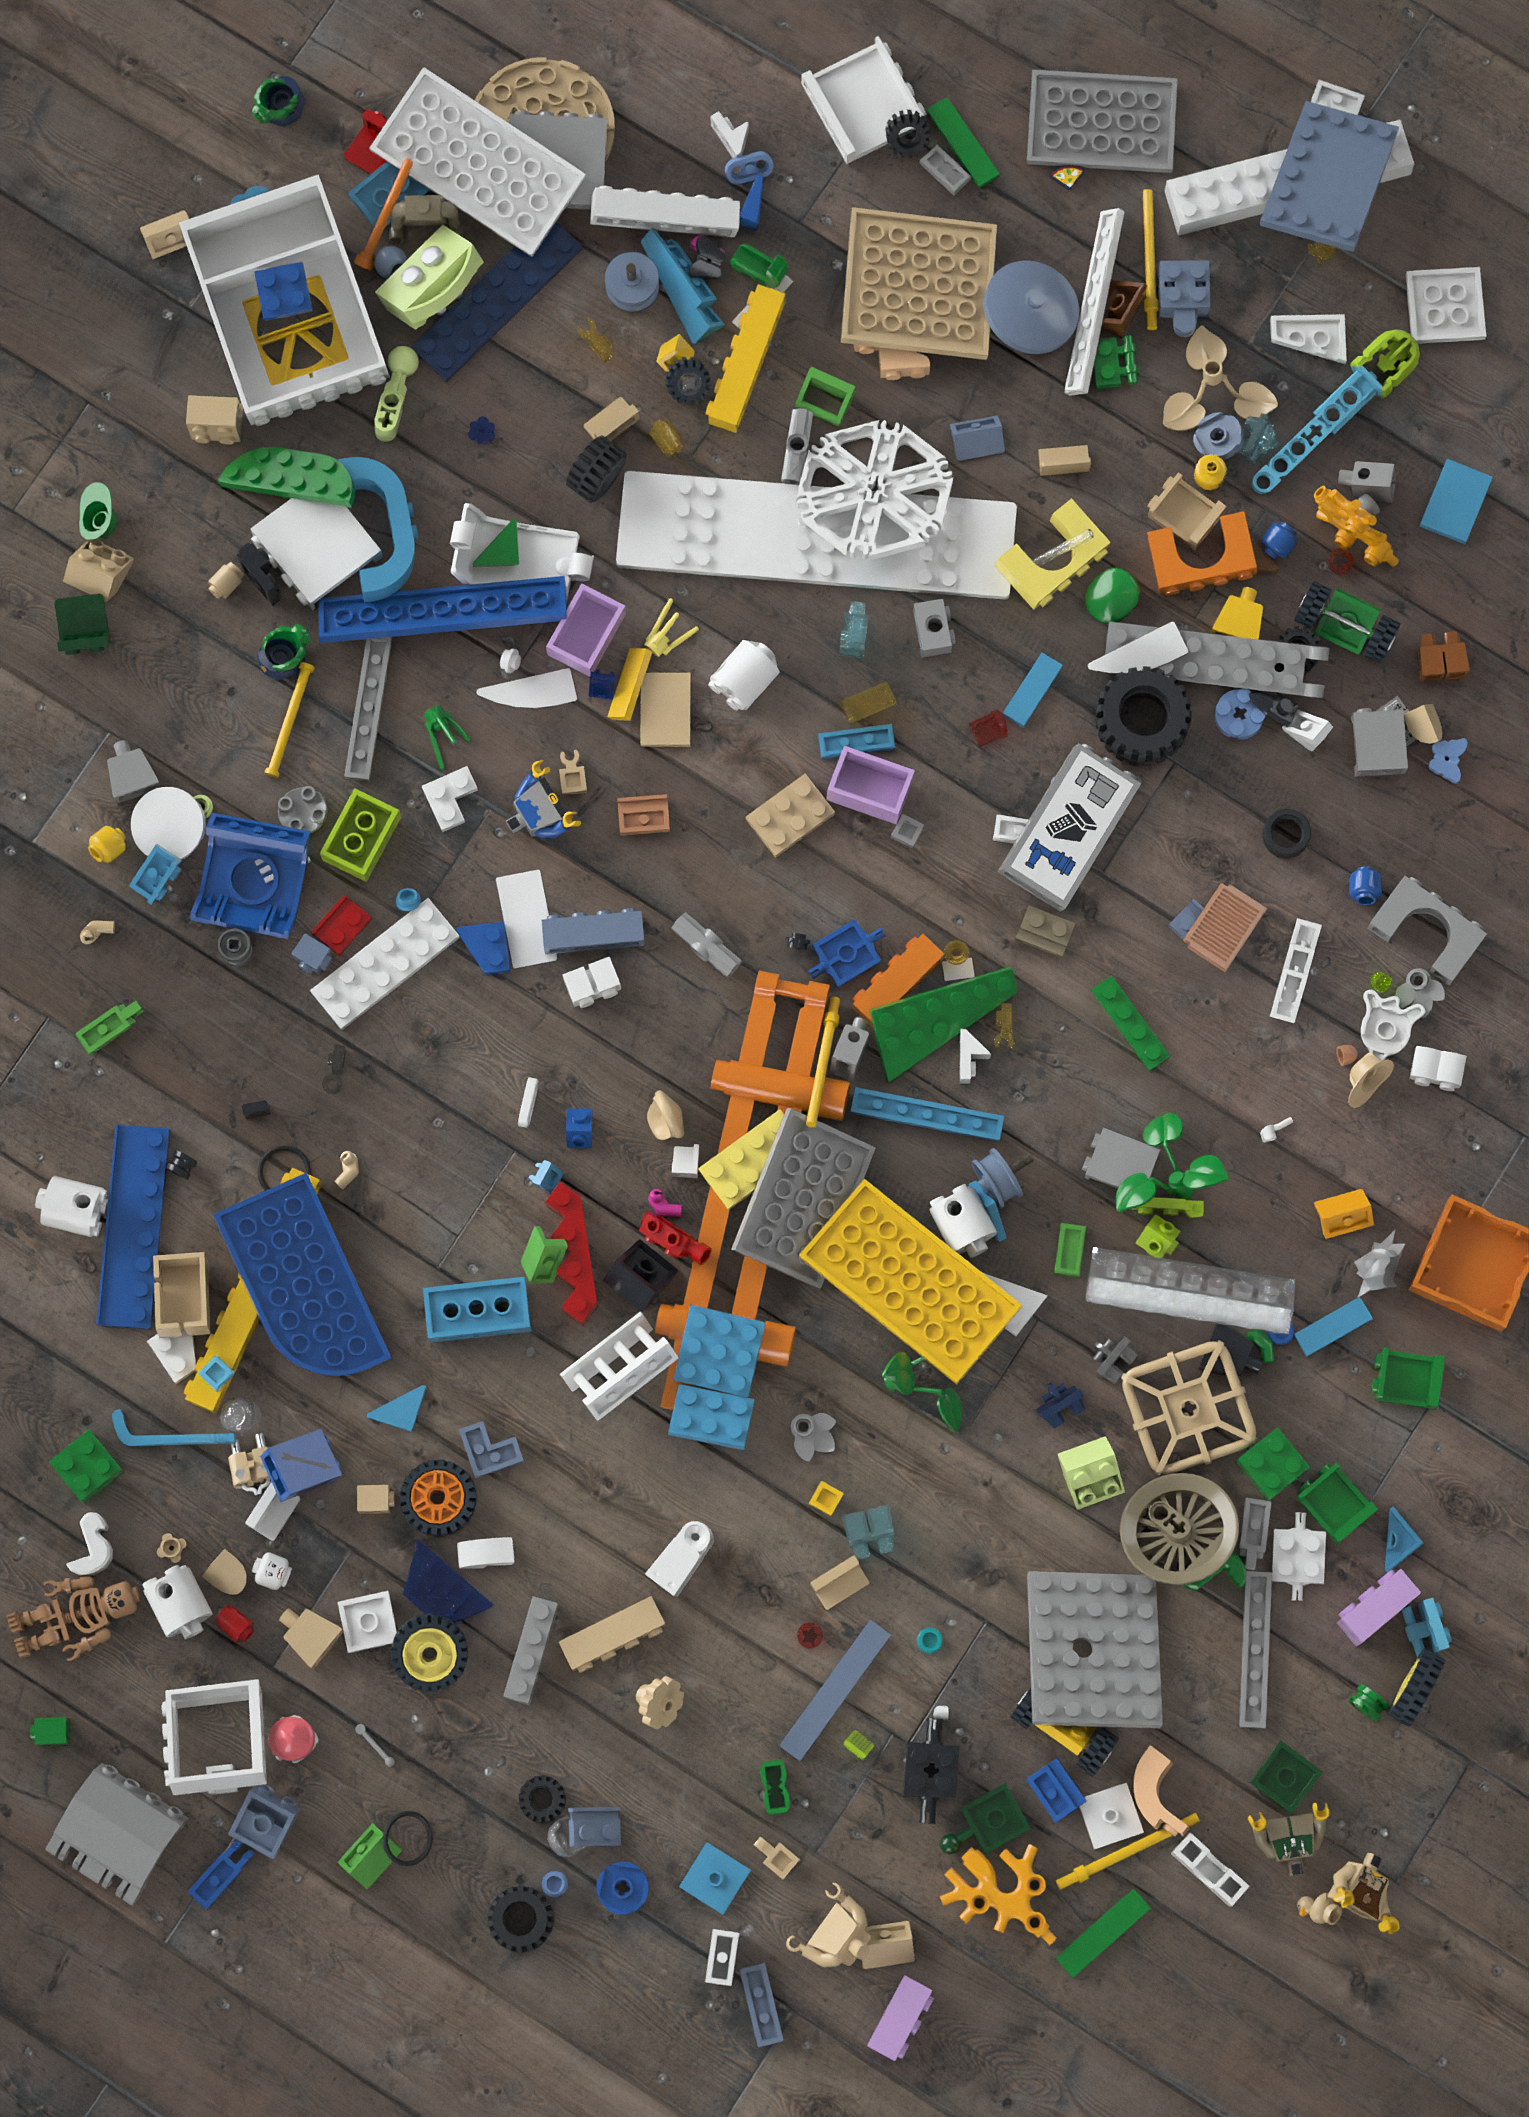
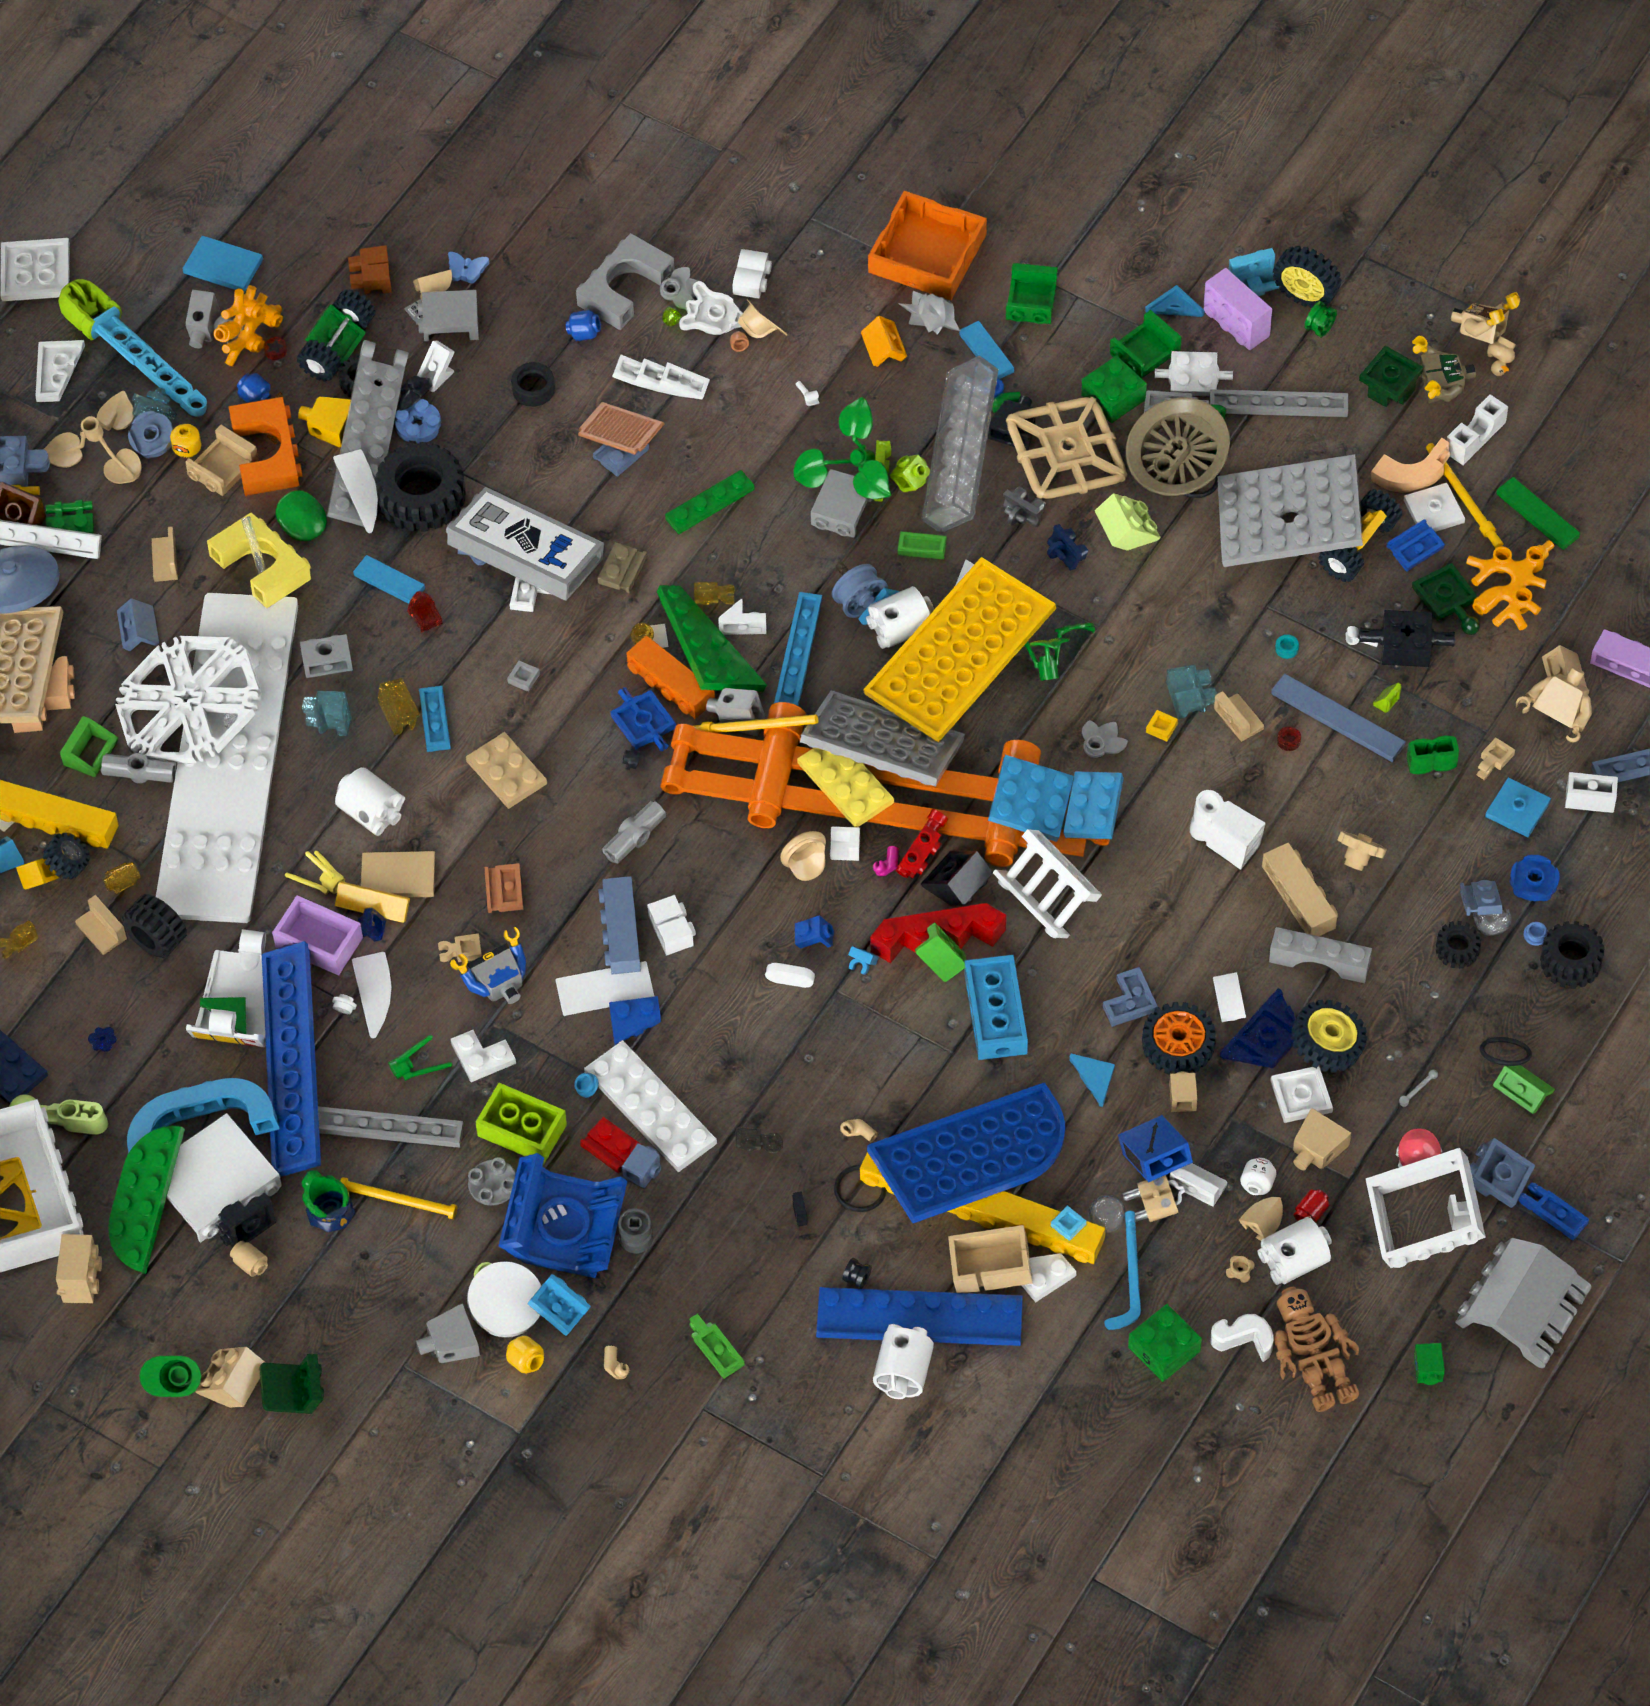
camera: 90 degrees left, 20 degrees down
(870, 785) = (481, 697): lavender piece -> none

